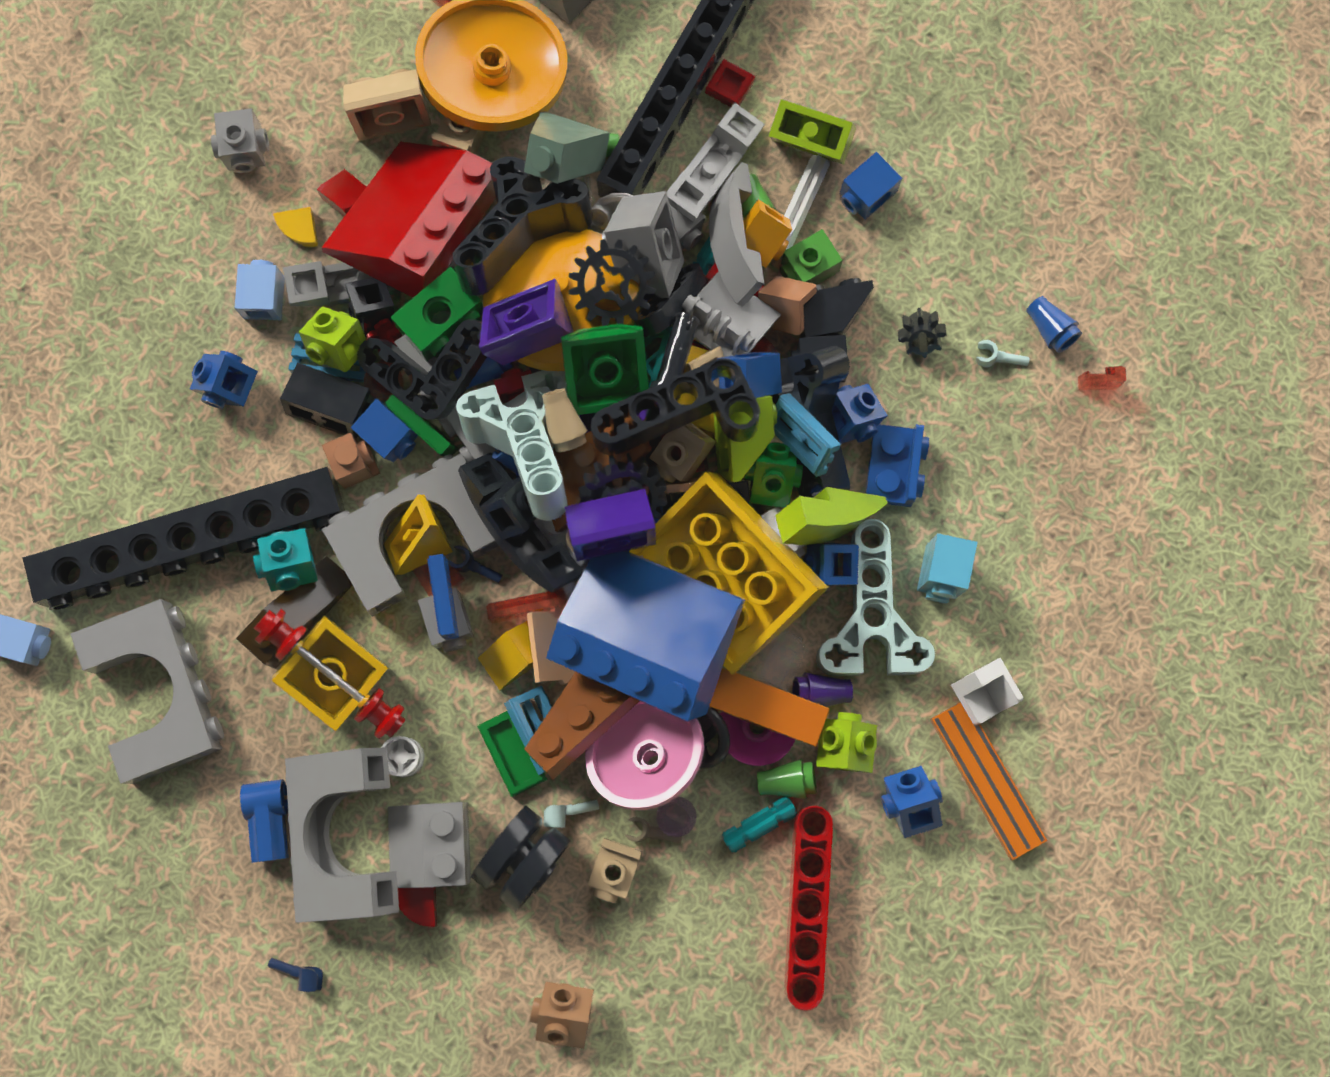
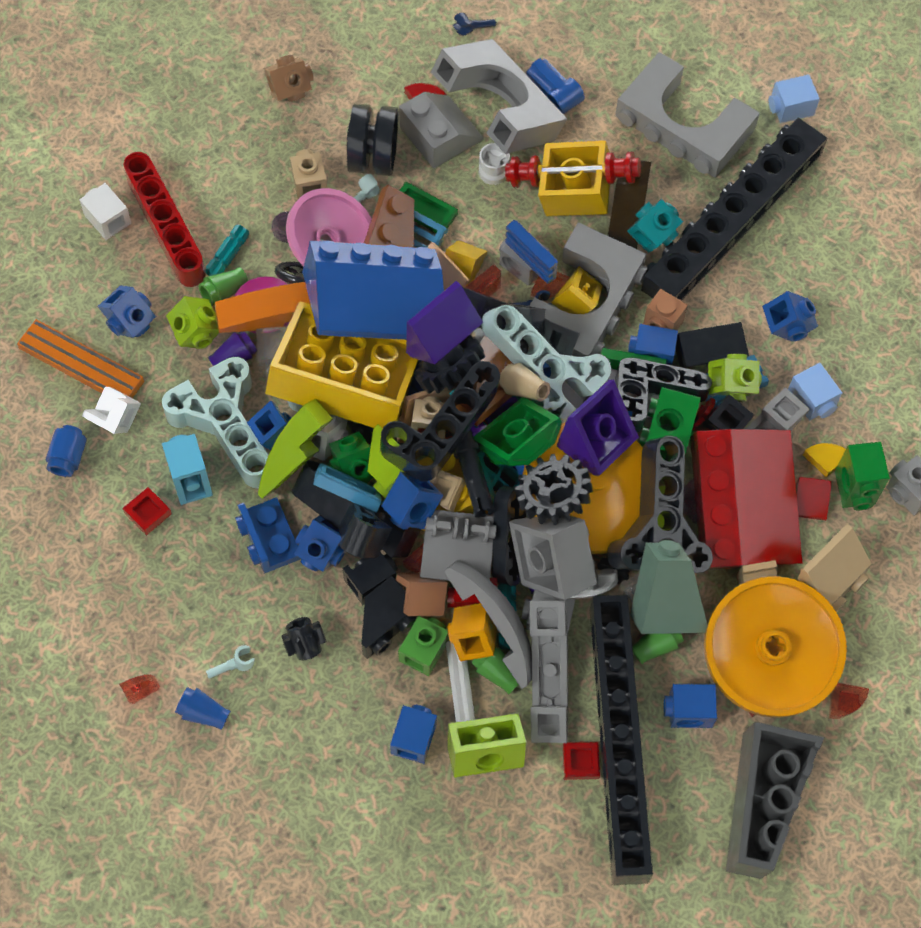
camera: 145 degrees right, 15 degrees down
(285, 169) = (862, 475): none -> green brick
(600, 66) = (691, 706): none -> blue brick
(870, 958) = (105, 211): none -> white brick
(1004, 559) = (147, 511): none -> red plate
(1055, 675) = (65, 451): none -> blue brick

